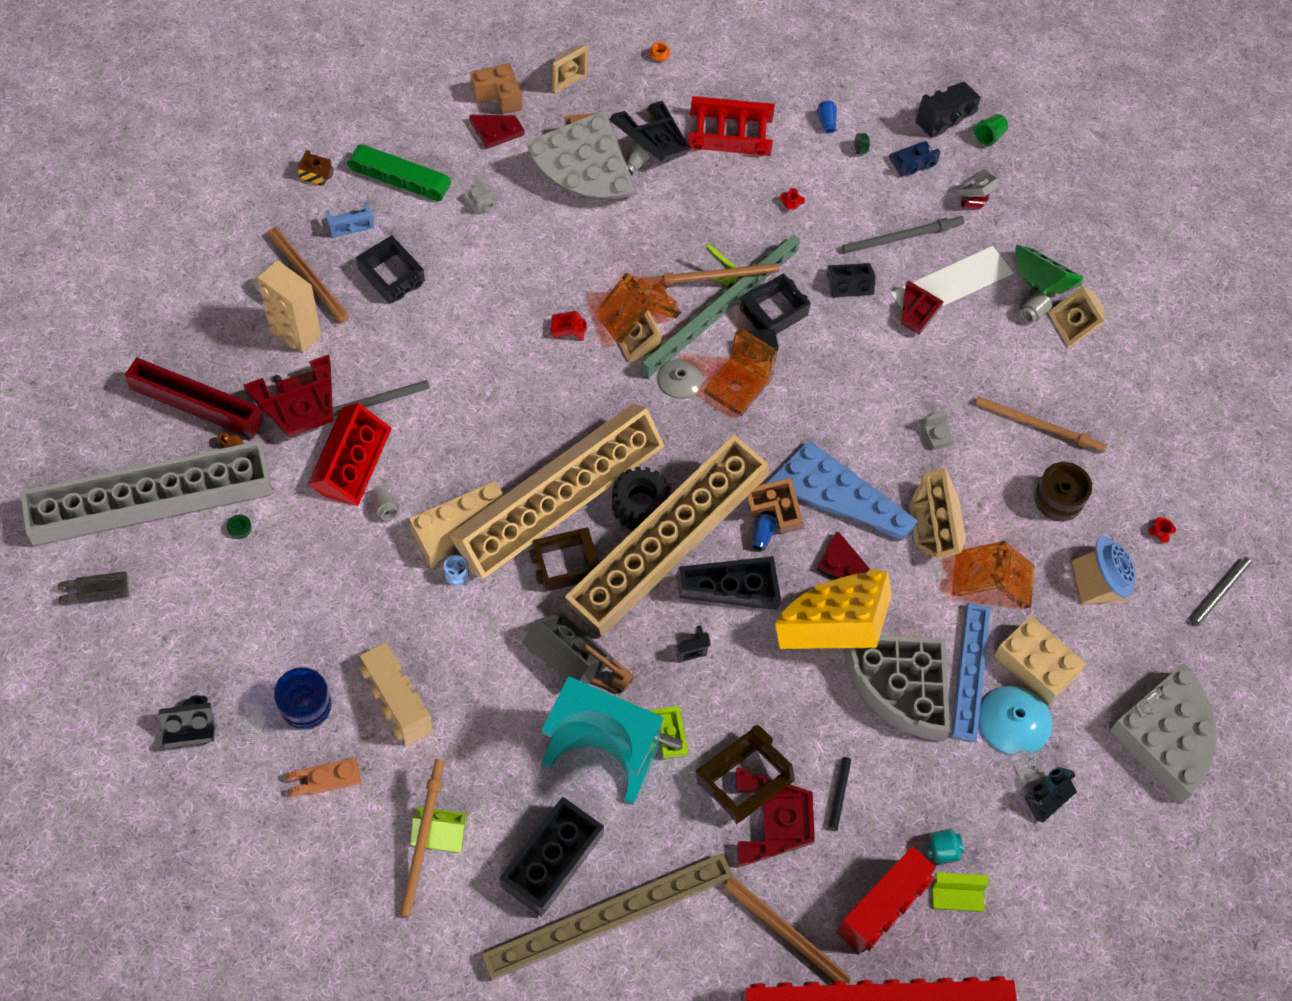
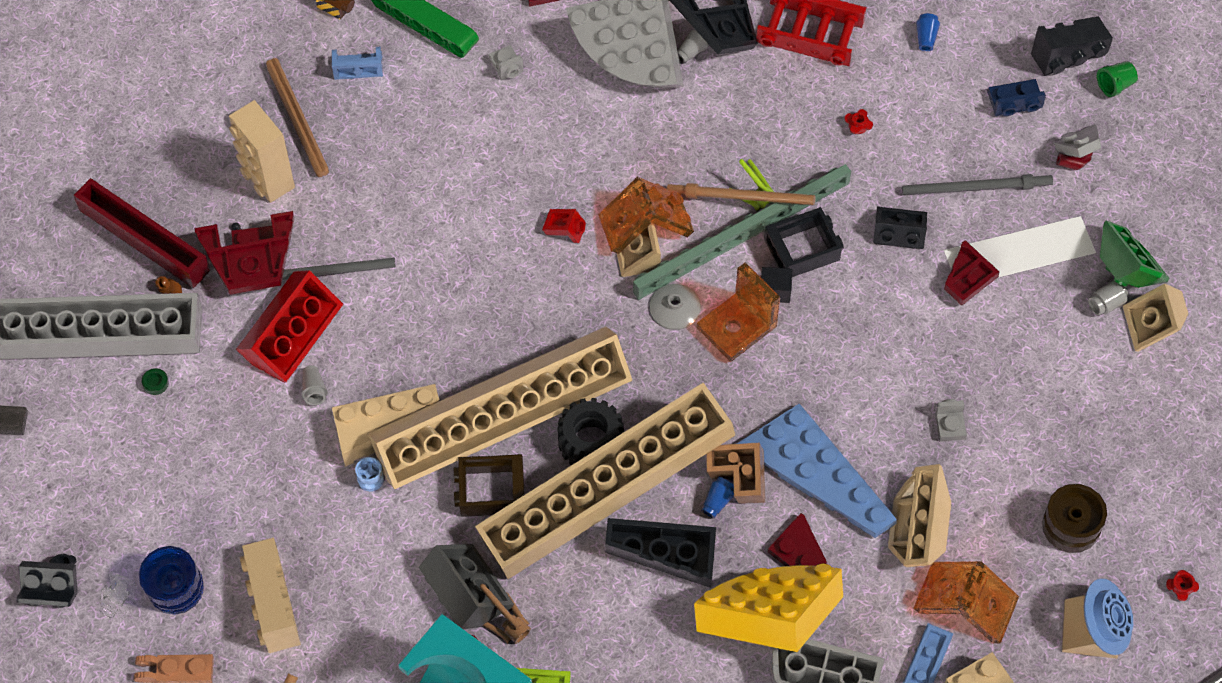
camera: 20 degrees right, 0 degrees up
(382, 252) = (380, 107): black window -> none
(693, 649) = (601, 612): black bracket -> none
(862, 143) = (958, 70): dark green tile -> none
(1082, 439) = (1118, 462): medium nougat bar -> none

